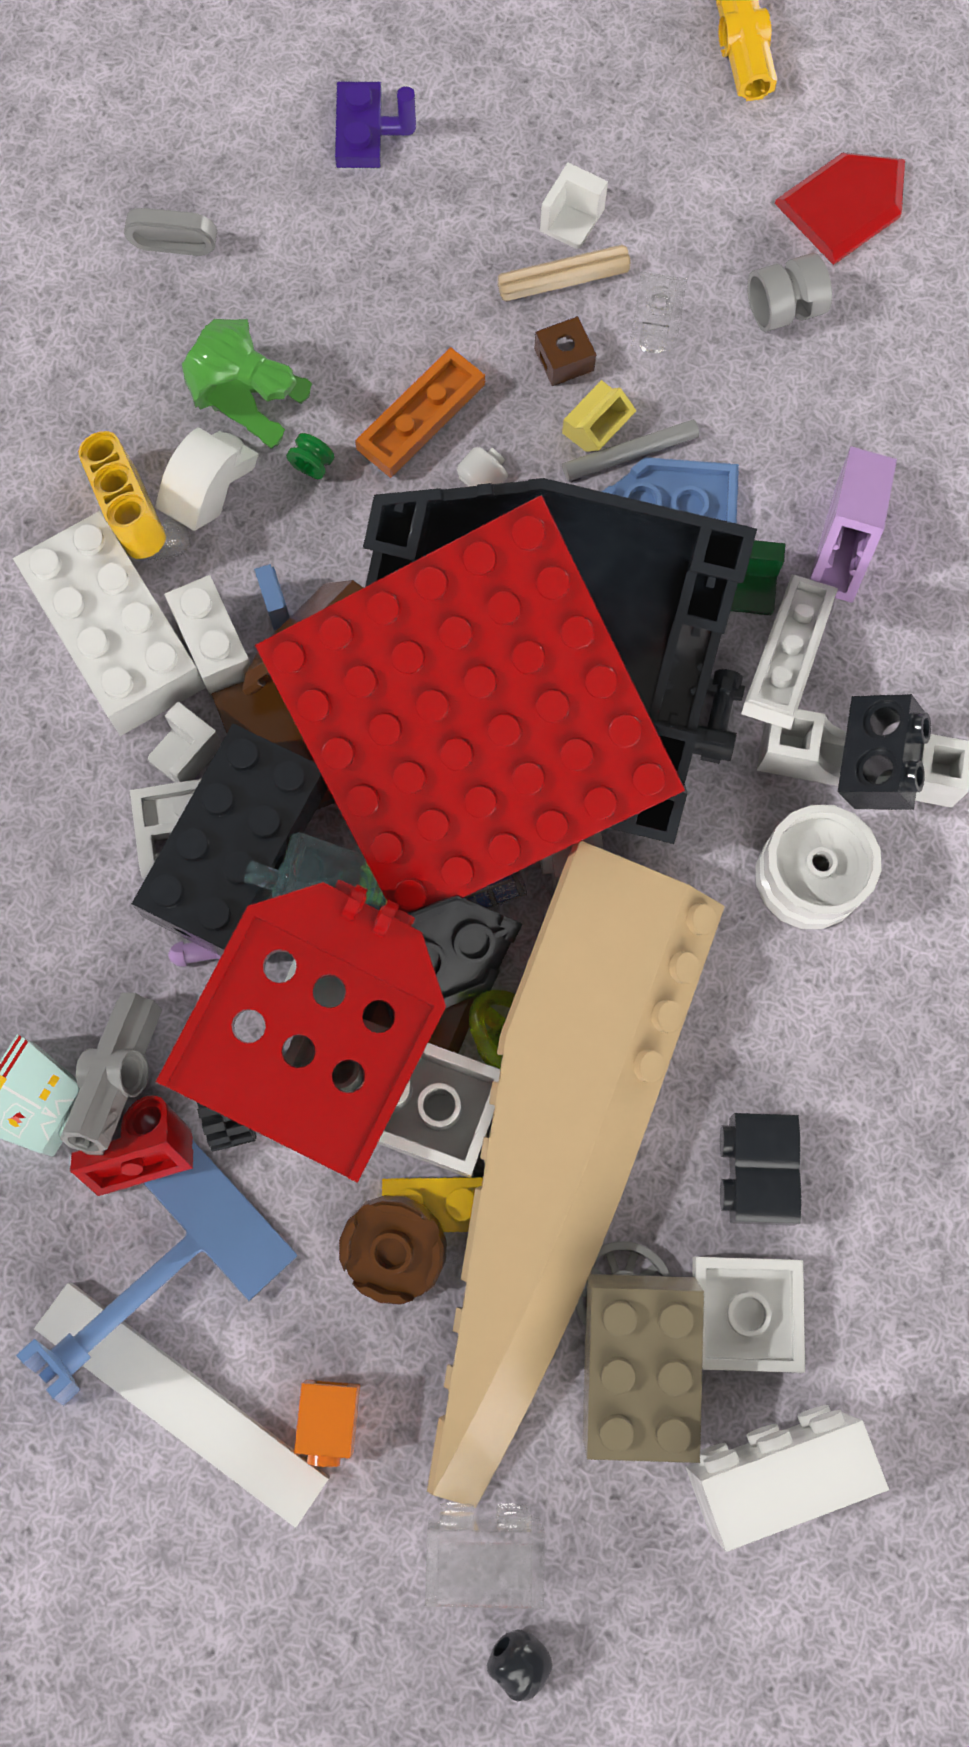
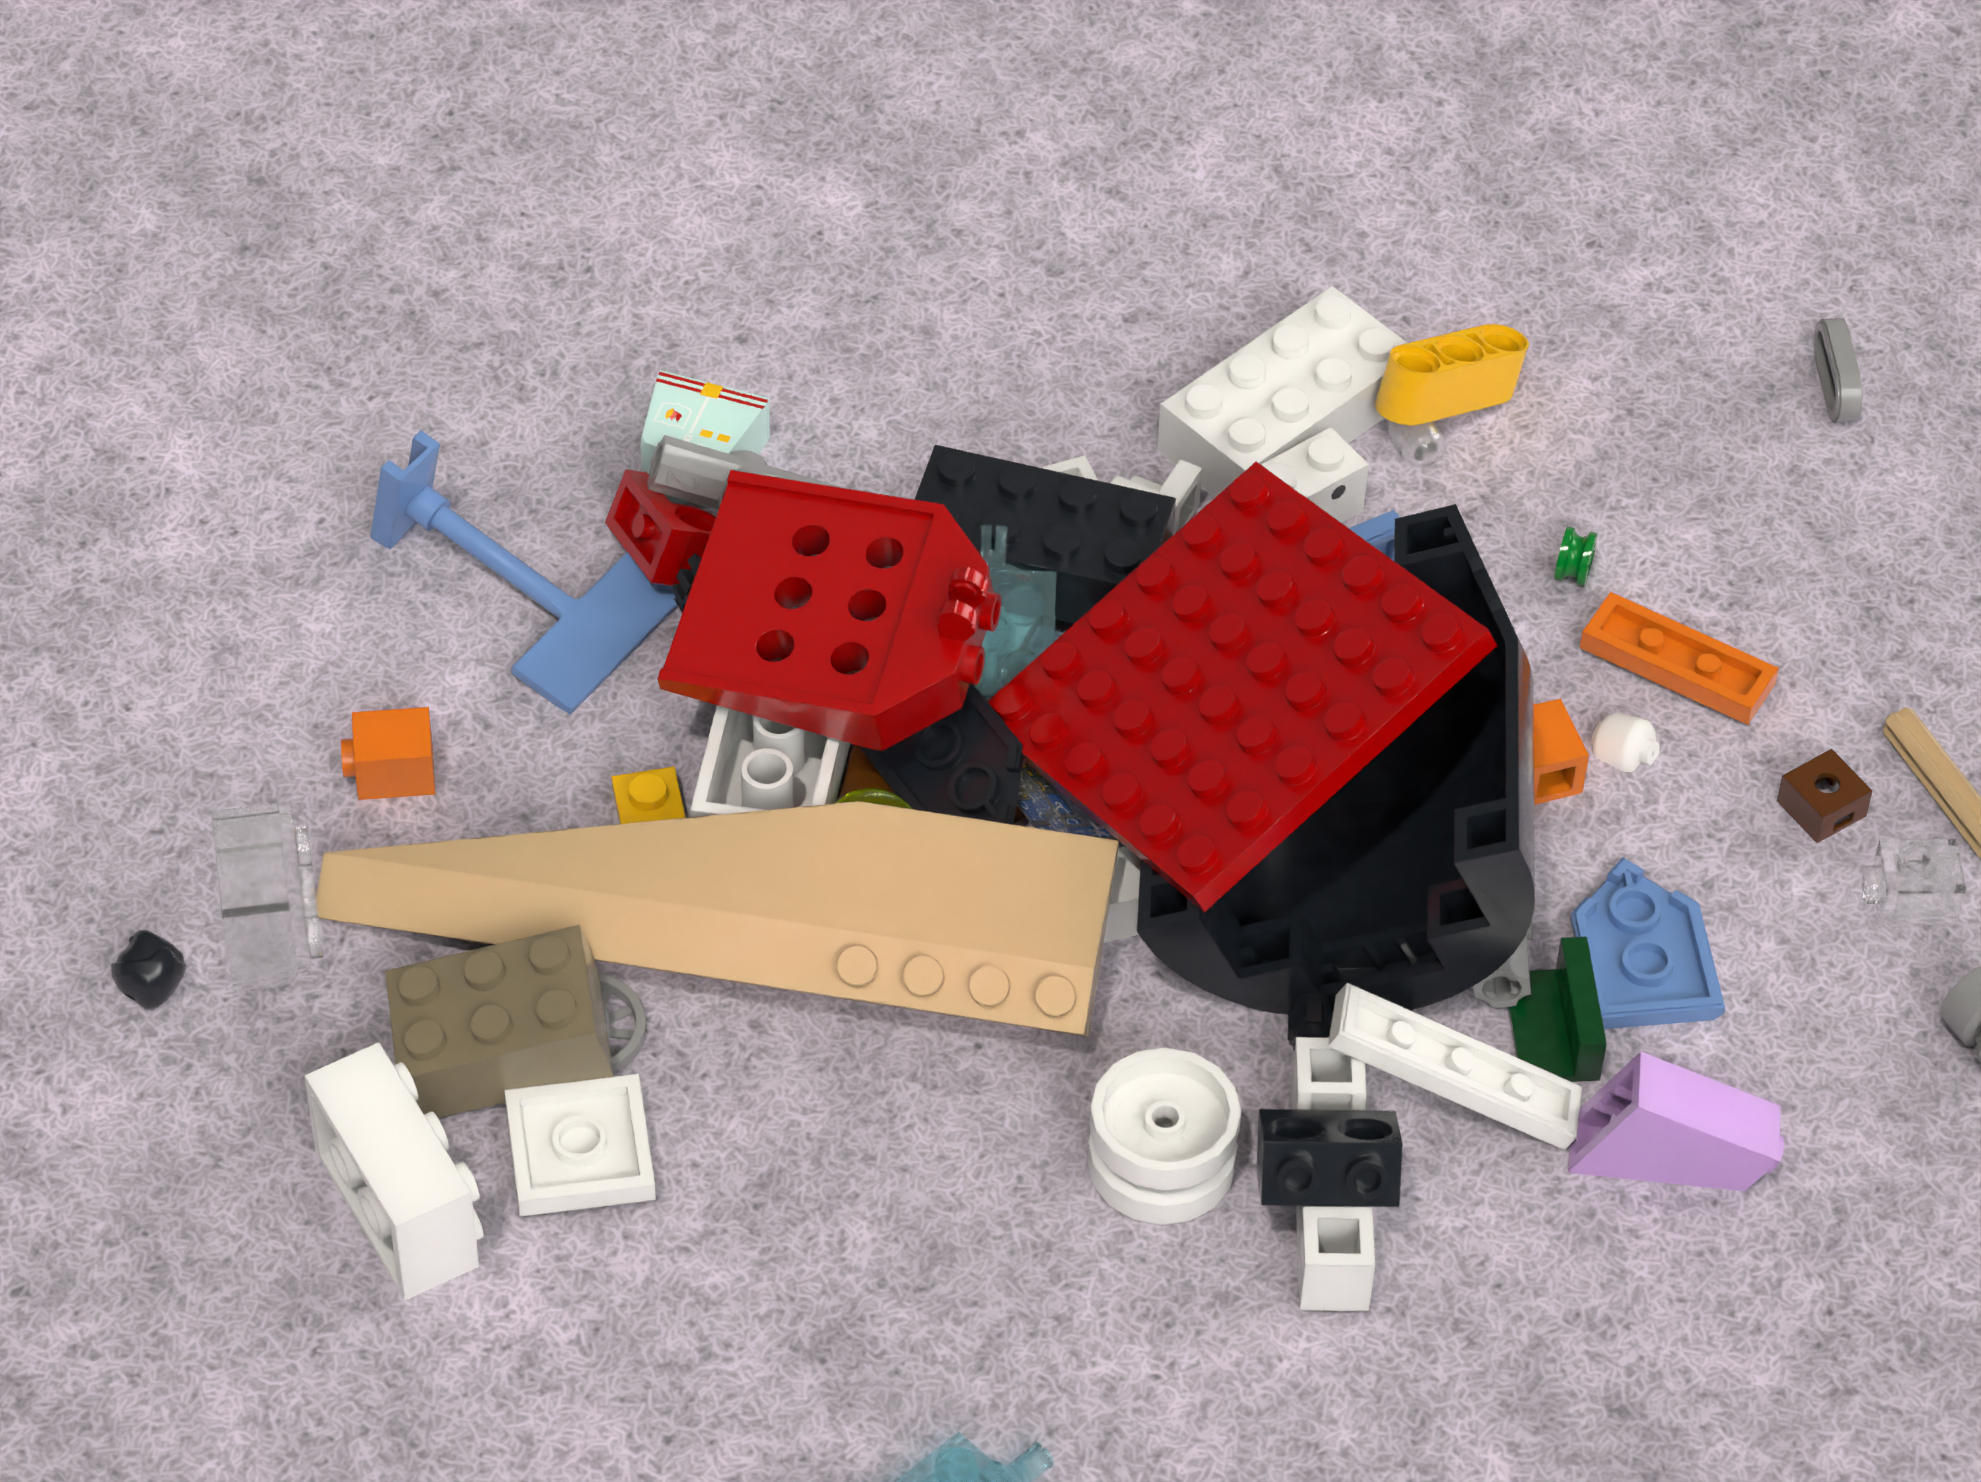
camera: 80 degrees right, 25 degrees down
(190, 1409) = (382, 642): white tile -> none
(200, 475) = (1512, 442): white brick -> none
(226, 370) = (1659, 450): bright green piece -> none
(393, 1249) = (595, 781): reddish brown tile -> none
(598, 417) = (1739, 840): light yellow piece -> none
(630, 450) = (1708, 893): light grey bar -> none
(763, 1169) = (760, 1136): black brick -> none

